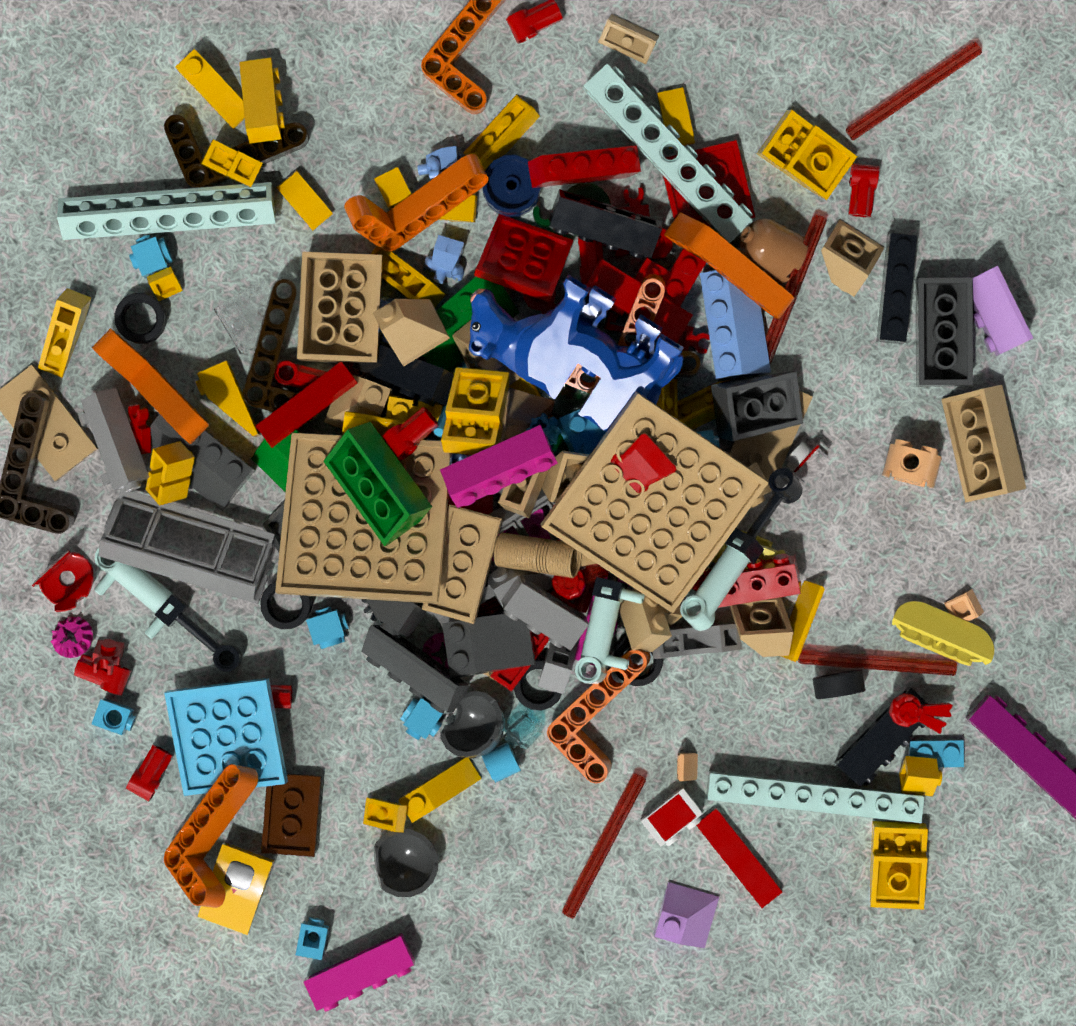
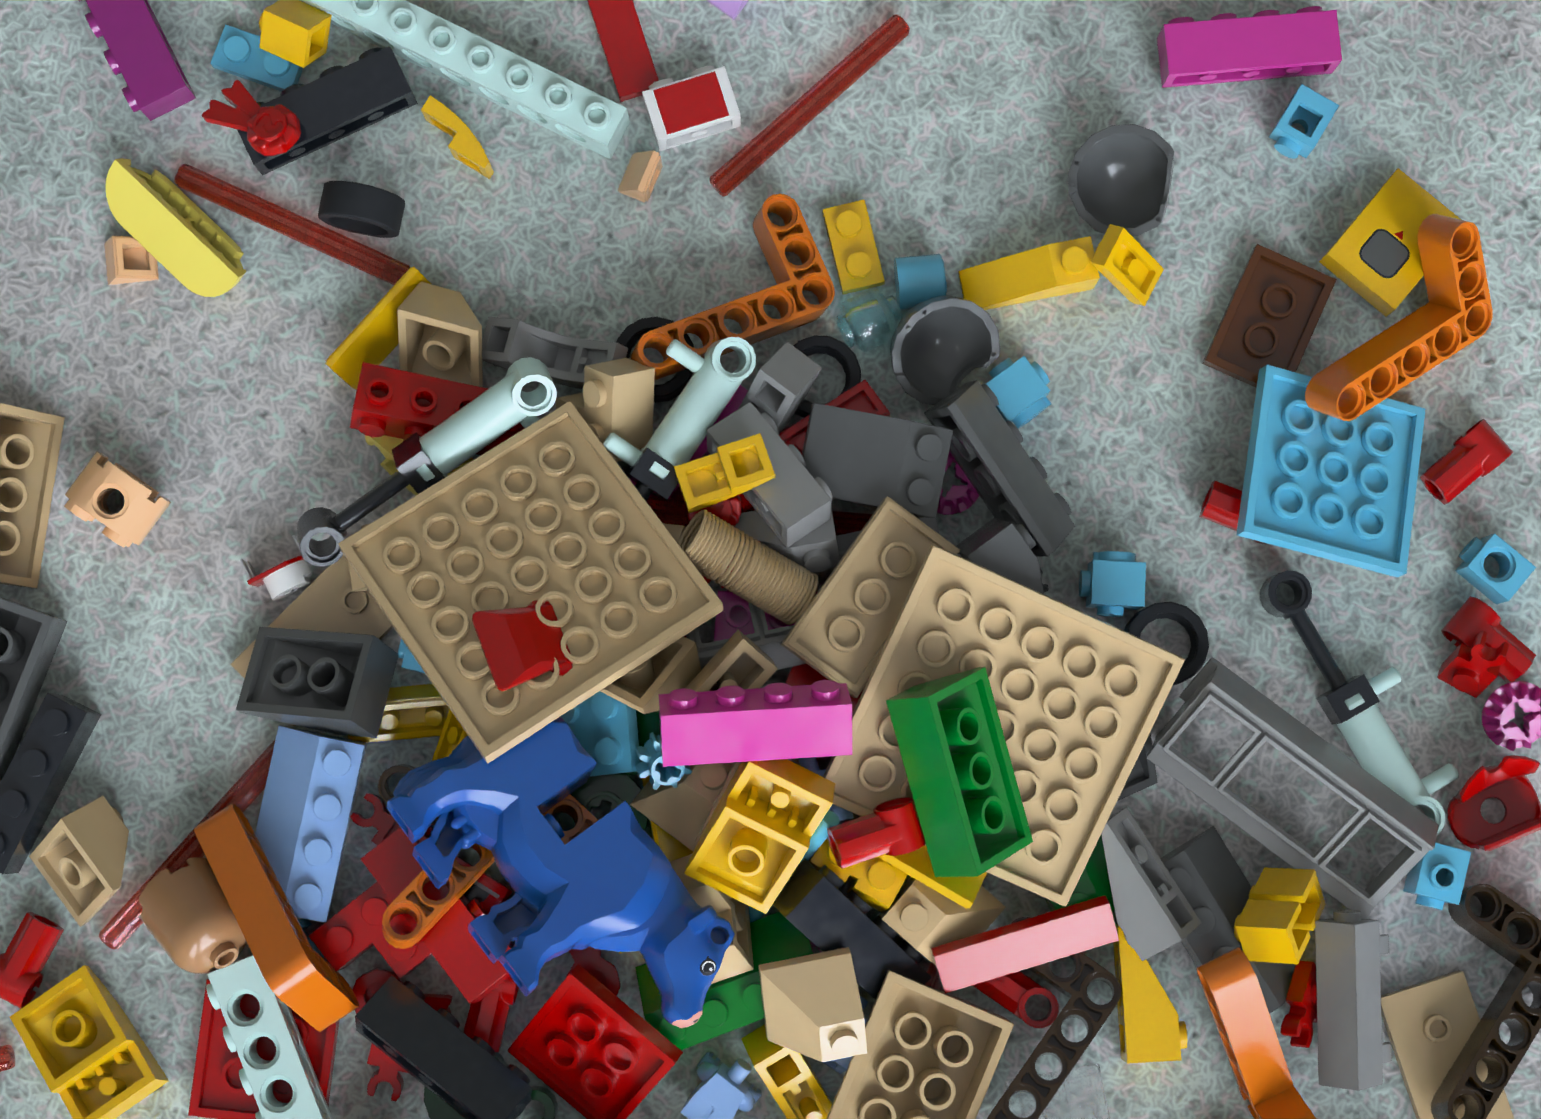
camera: 165 degrees left, 5 degrees down
(88, 528) = (1439, 876): none -> medium azure brick
(250, 457) = (1143, 891): none -> light grey slope
(547, 770) = (853, 247): none -> yellow plate
(568, 602) = (724, 474): none -> yellow slope
(794, 746) = (464, 143): none -> yellow slope

